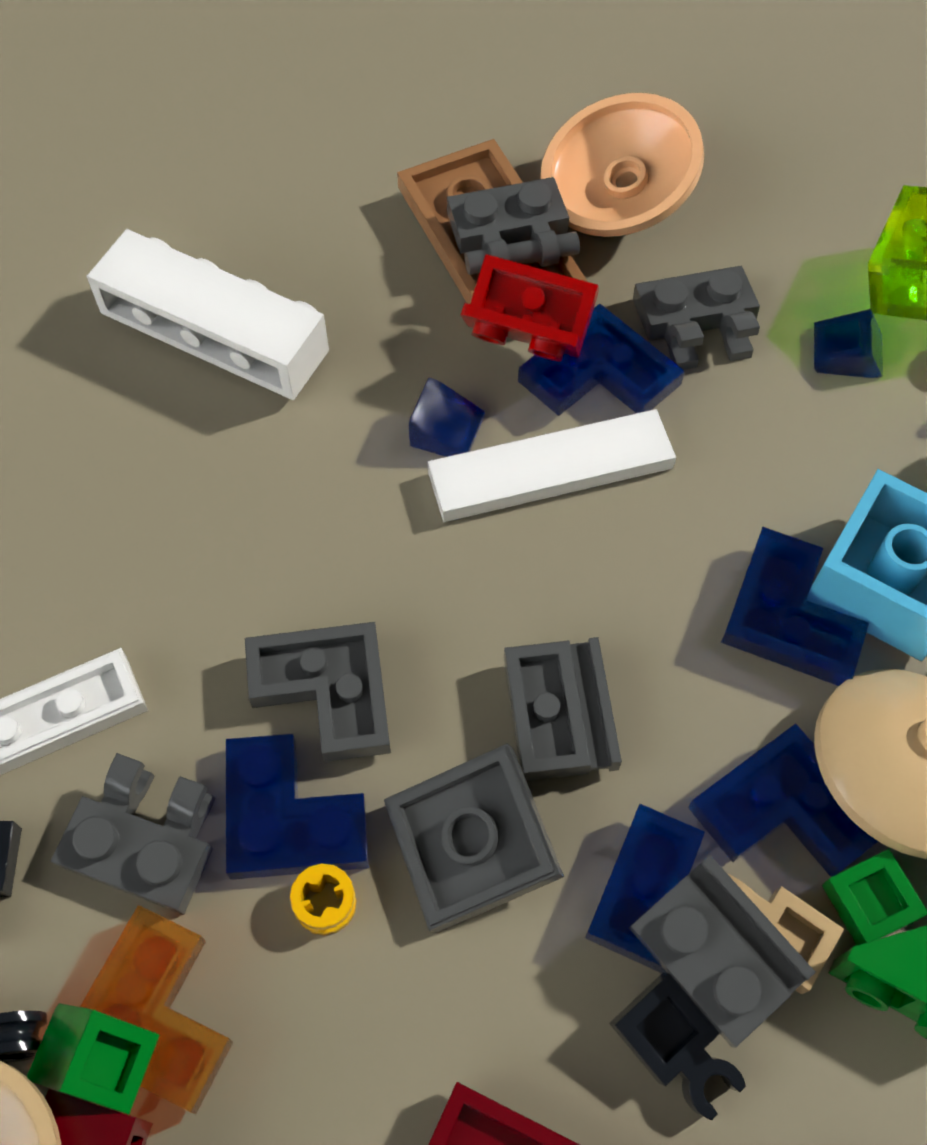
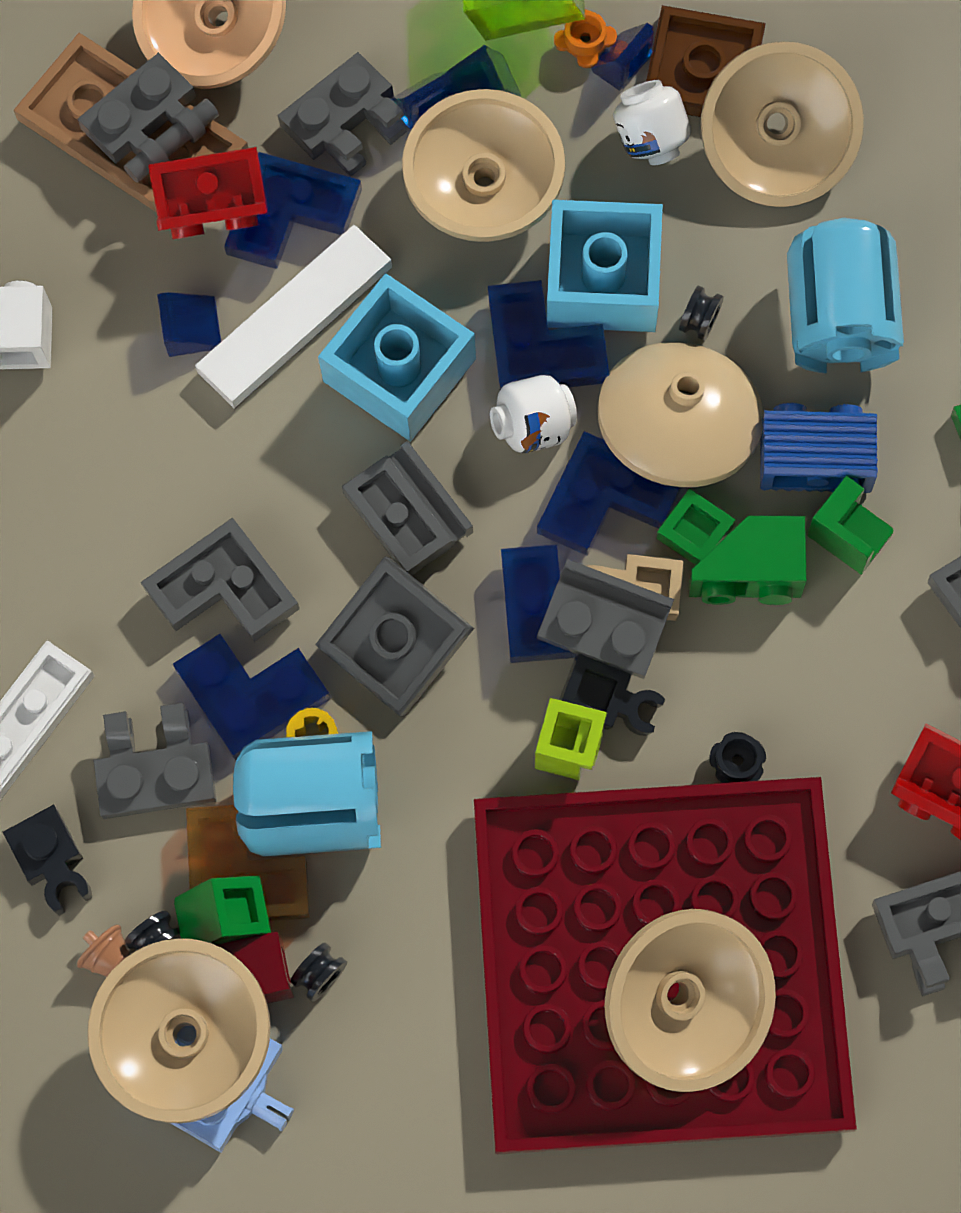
camera: 25 degrees left, 10 degrees up
(270, 969) = (307, 794): none -> medium azure cylinder
(608, 1075) = (569, 739): none -> lime brick
(633, 548) = (397, 357): none -> medium azure brick
(748, 678) = (533, 414): none -> white head
(787, 333) = (423, 95): none -> clear blue slope
(821, 387) = (476, 138): none -> tan dish

